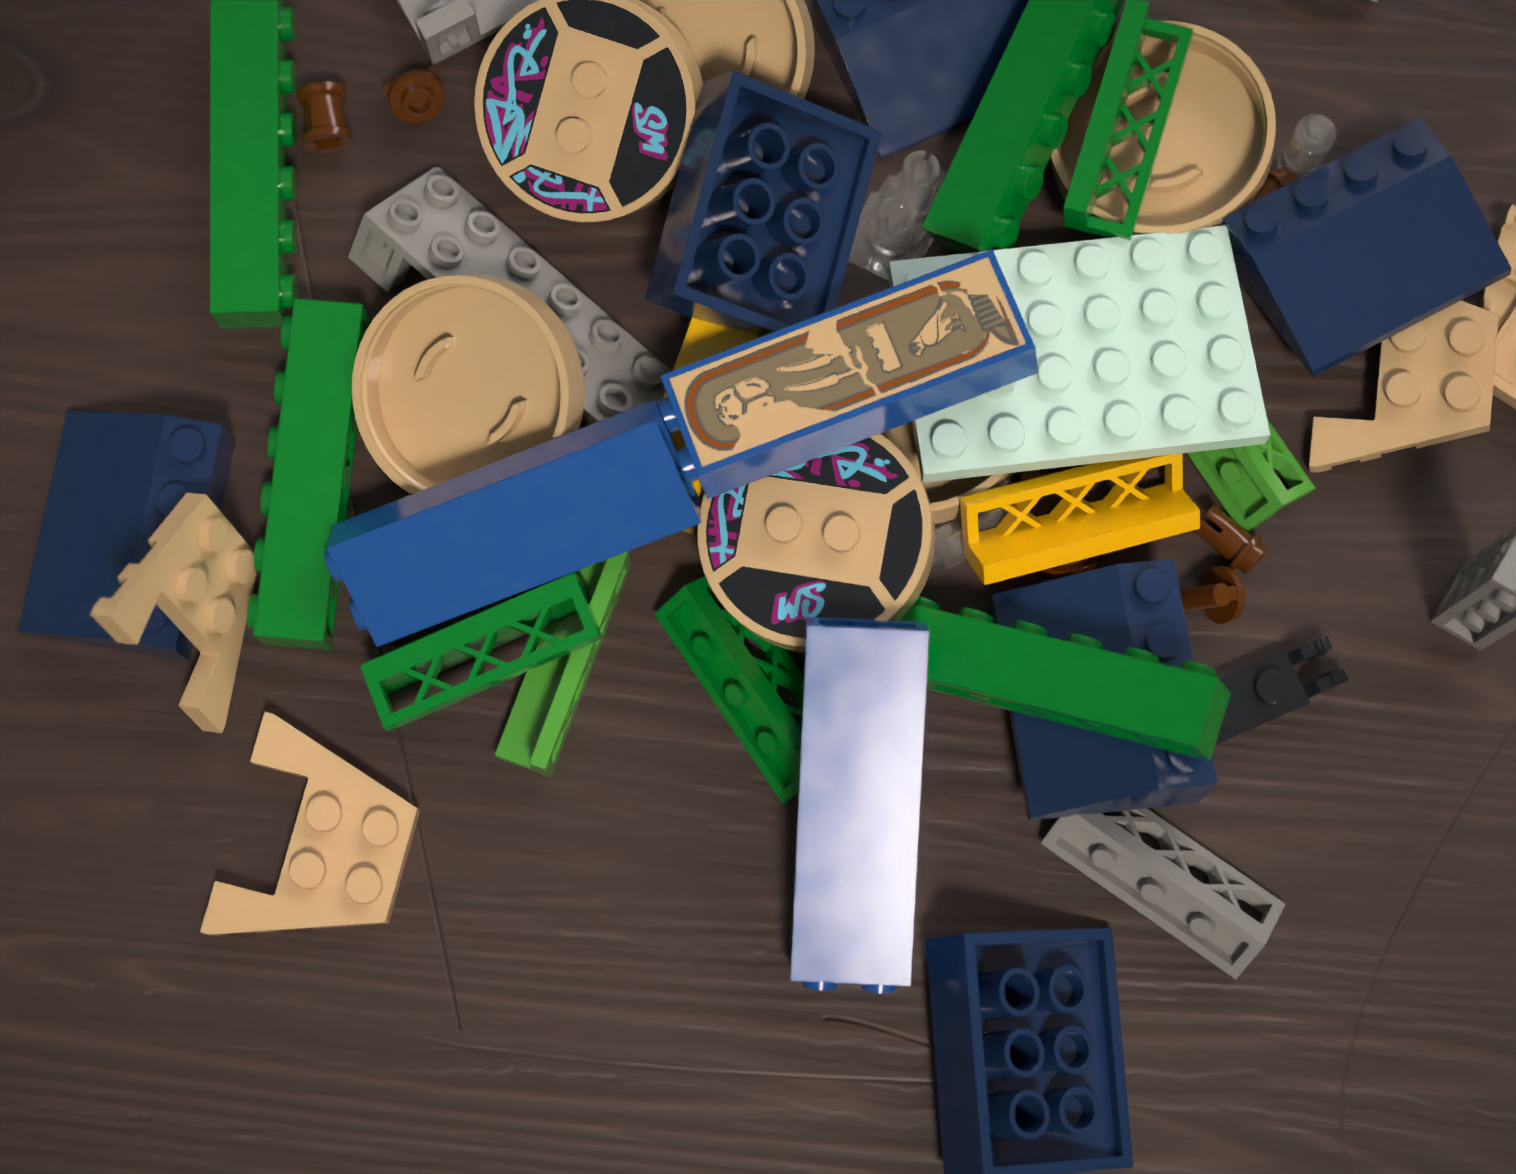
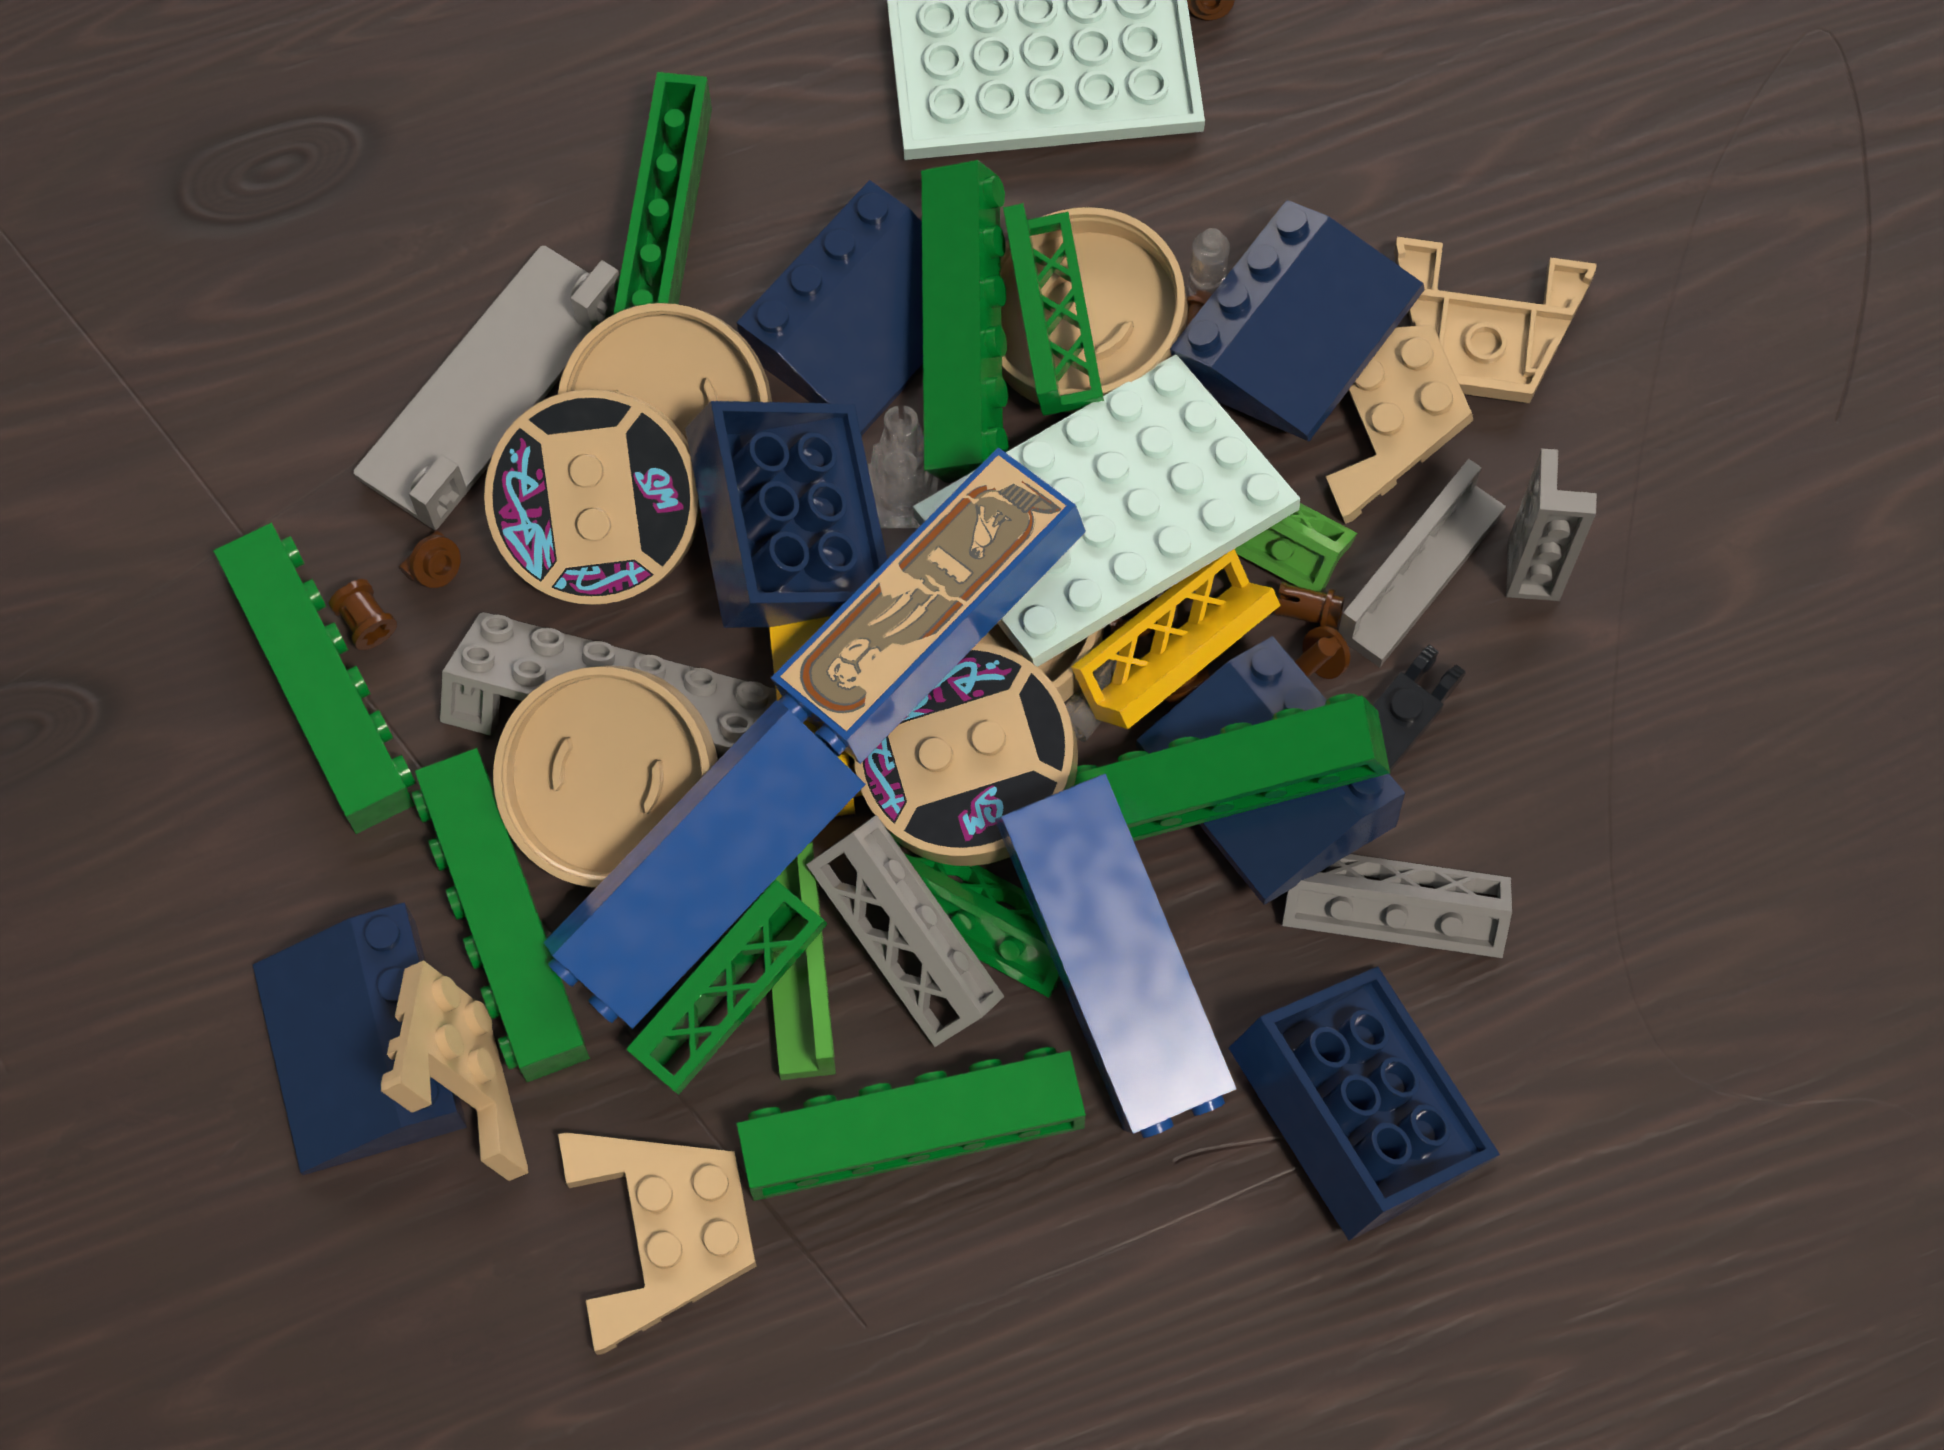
camera: 25 degrees left, 10 degrees down
(591, 864) = (911, 1123): none -> green brick
(687, 678) = (919, 920): none -> light grey fence
(1360, 553) = (1420, 566): none -> light grey fence

